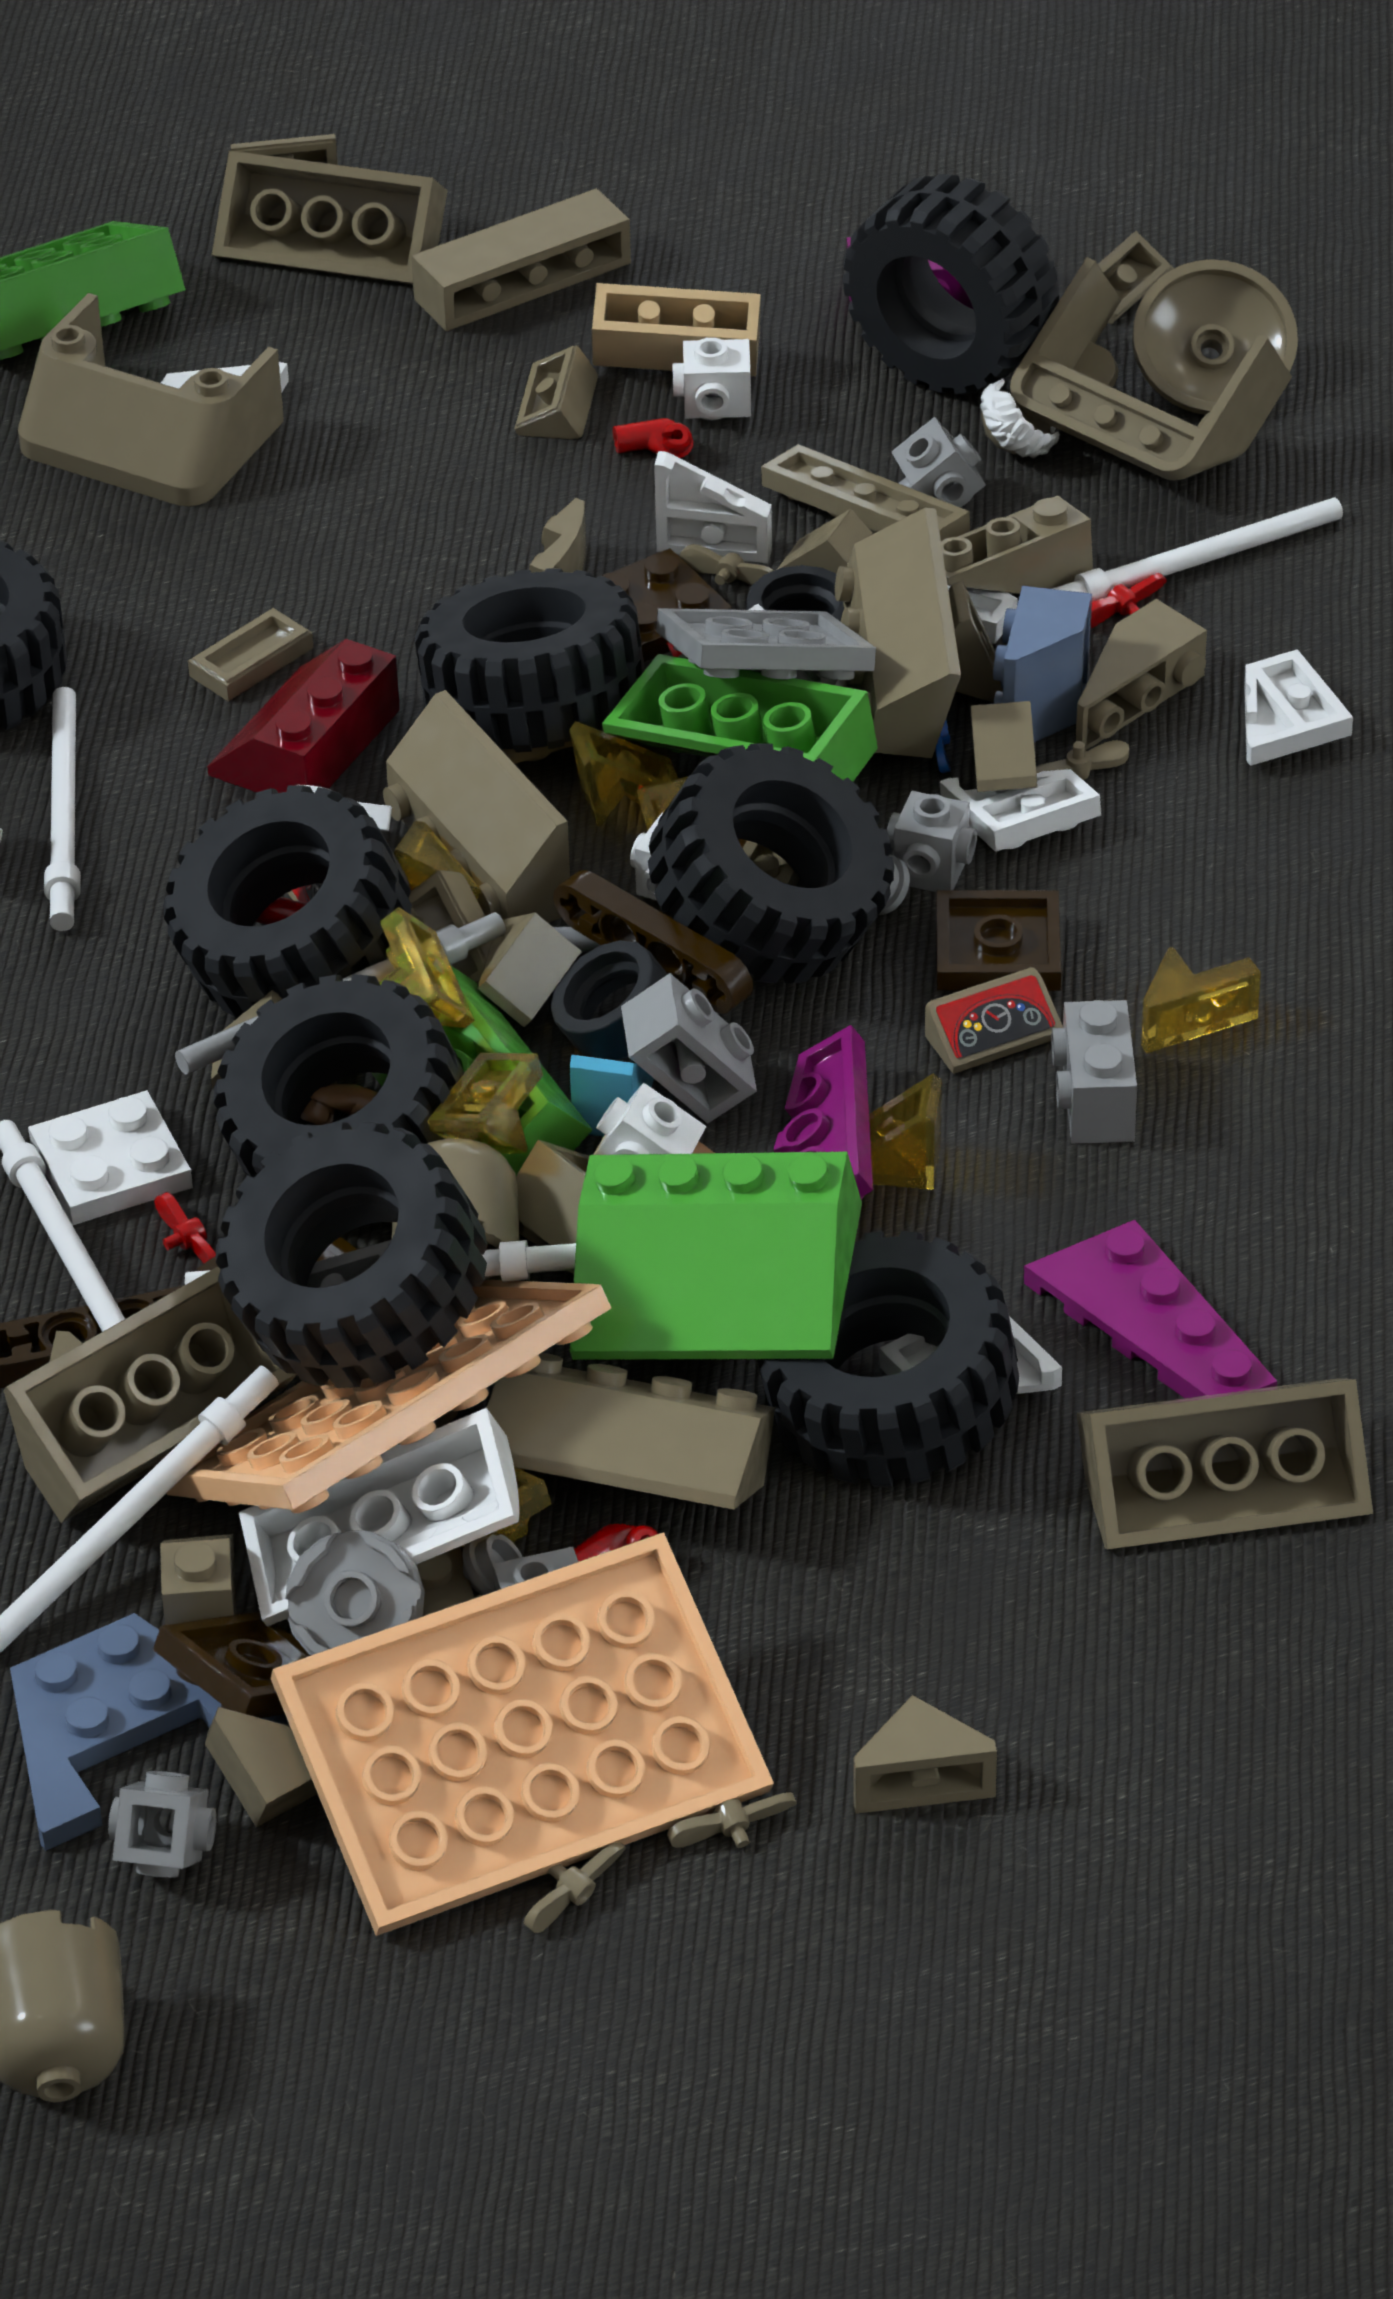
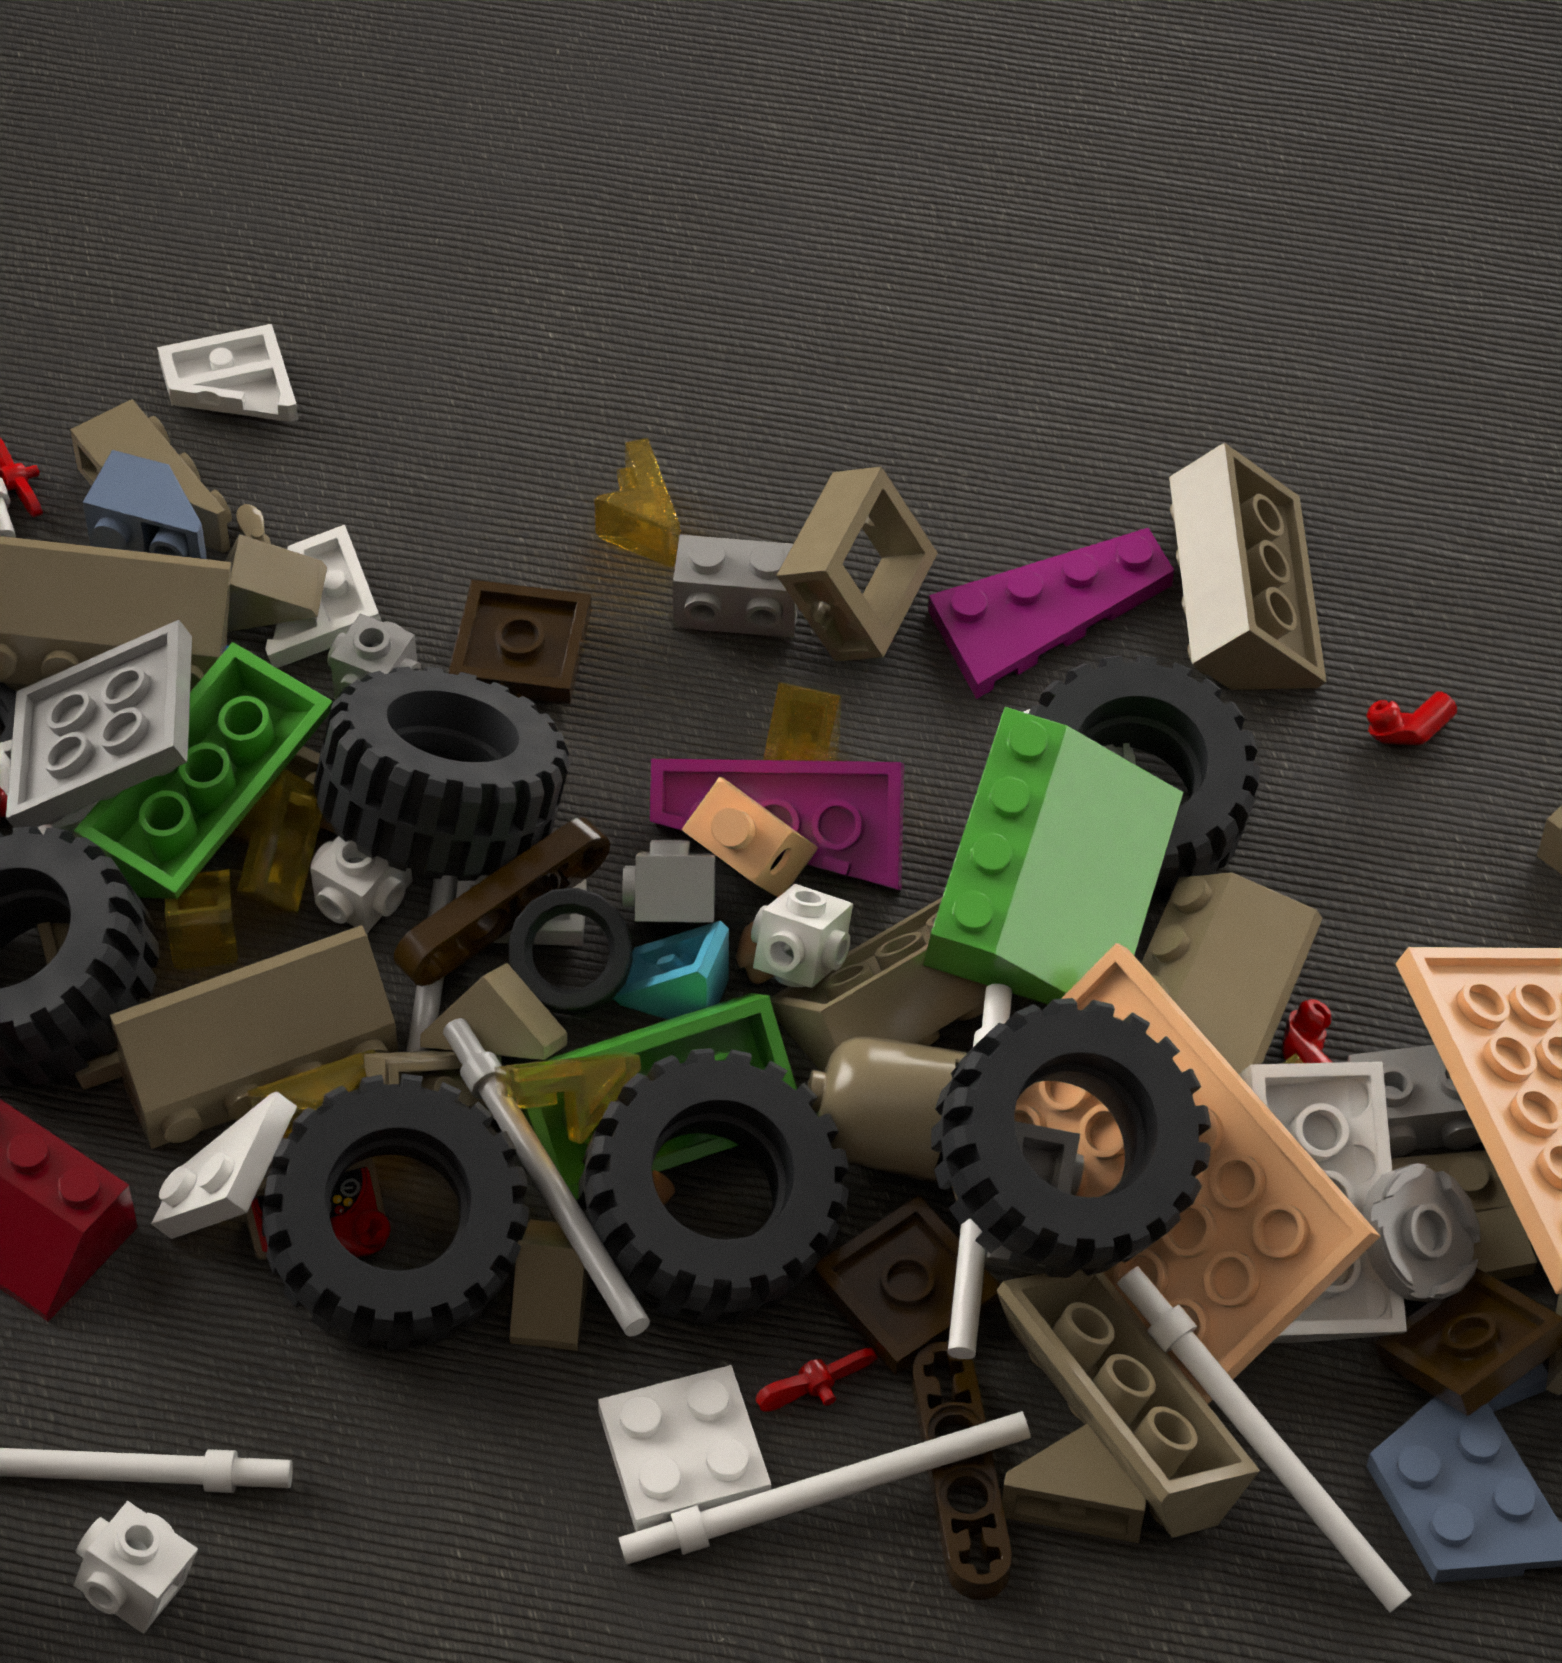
camera: 85 degrees left, 10 degrees up
(197, 1578) = (1334, 1388): dark tan slope -> none
(487, 1101) = (772, 1034): clear yellow slope -> none
(758, 1083) = (749, 838): none -> light nougat torso
(991, 1020) = (634, 665): slope -> none
(1055, 1615) = (1414, 728): none -> red arm
(1063, 1125) = (814, 573): none -> dark tan window

